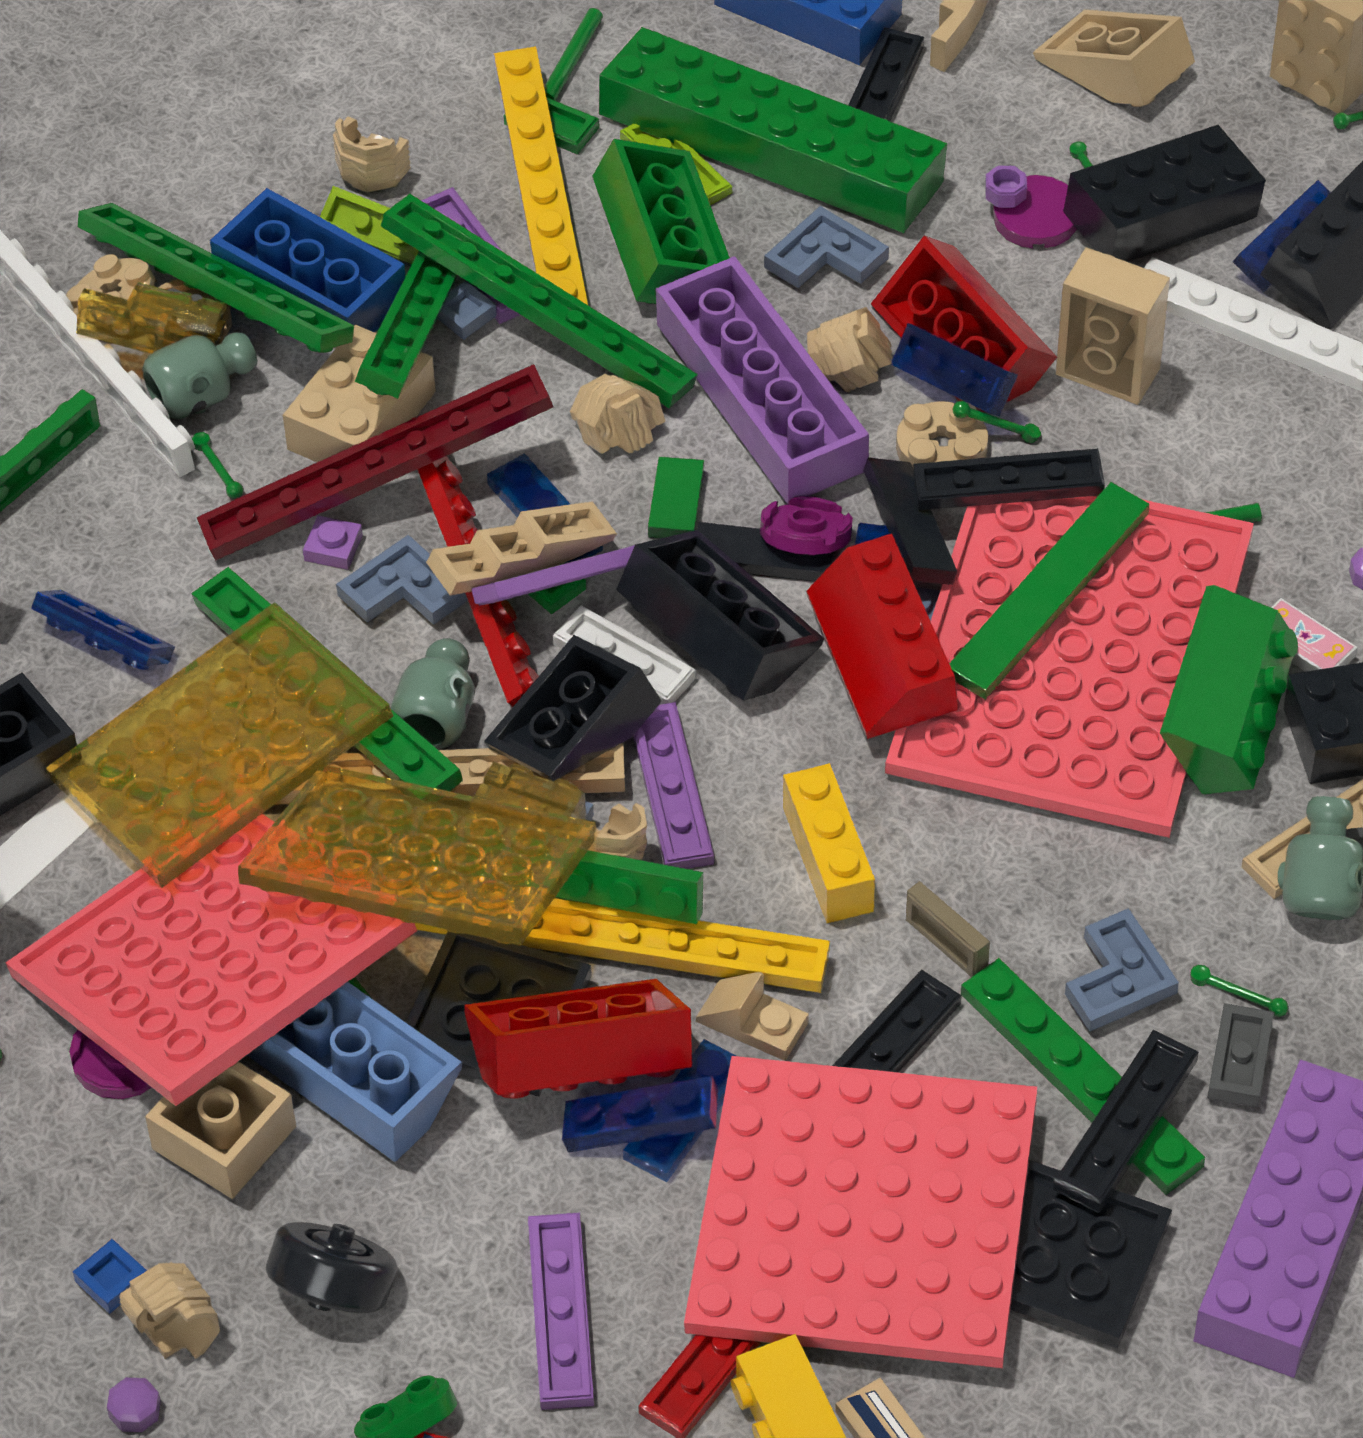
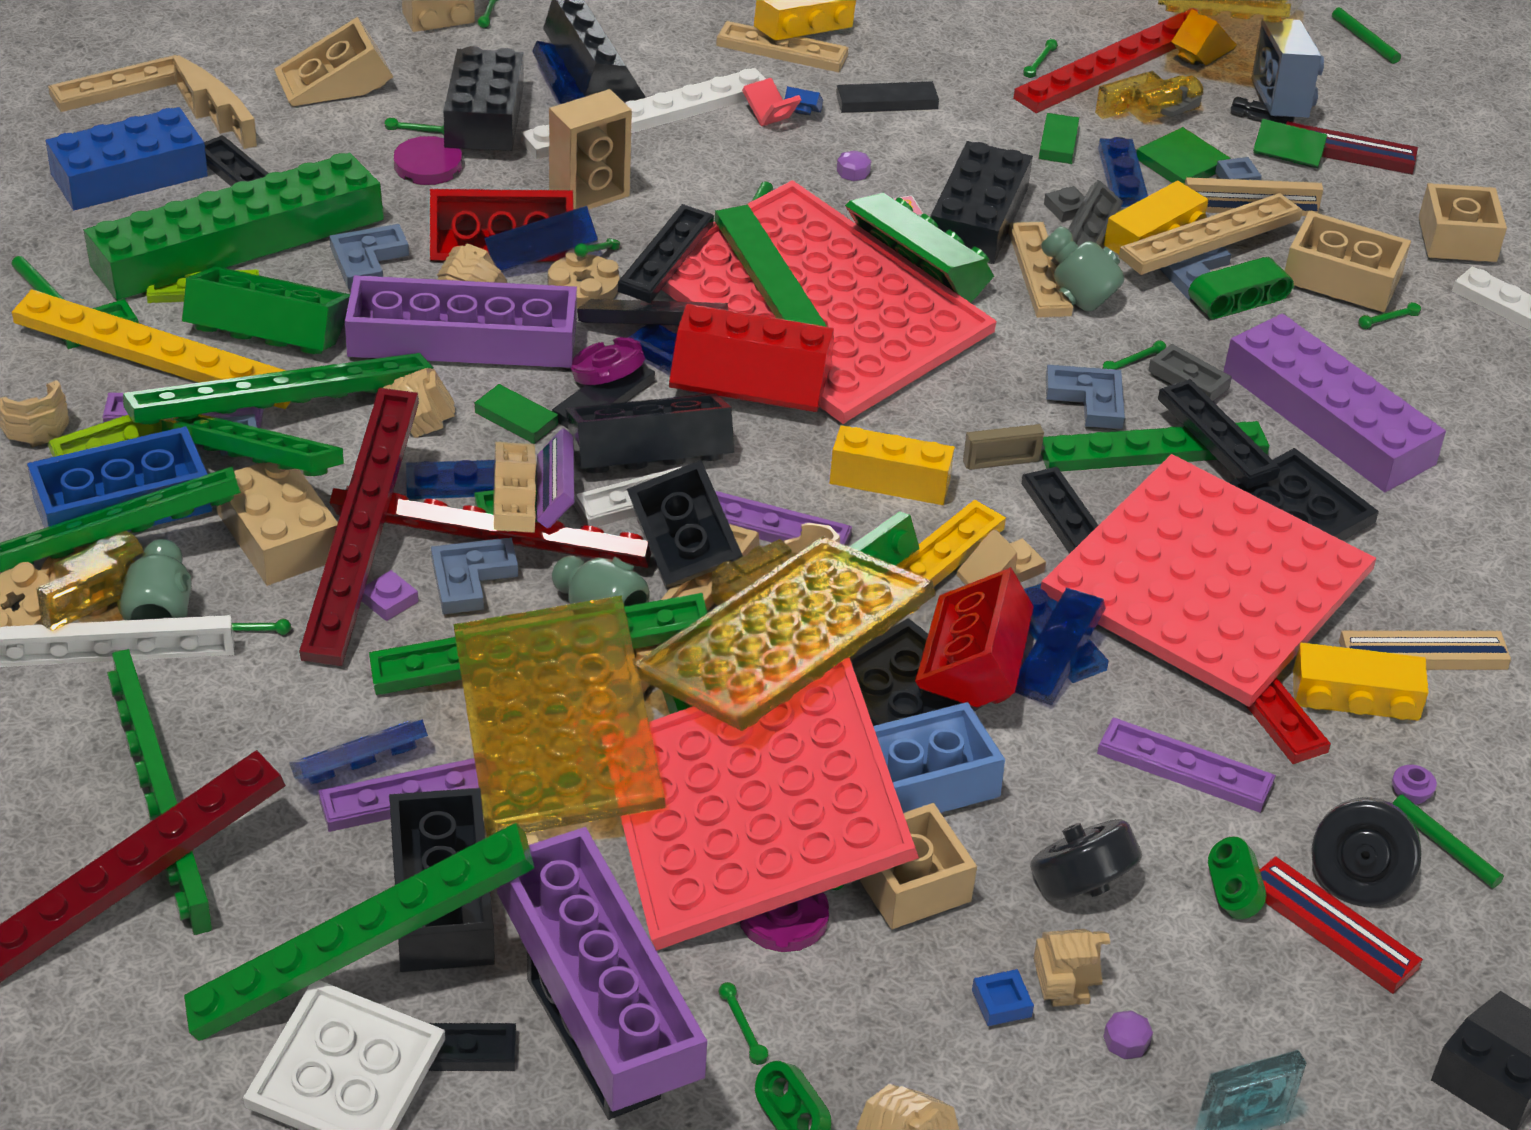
camera: 65 degrees left, 10 degrees down
(67, 681) = (369, 799): none -> medium lavender tile
(1005, 186) = (405, 153): medium lavender tile -> none

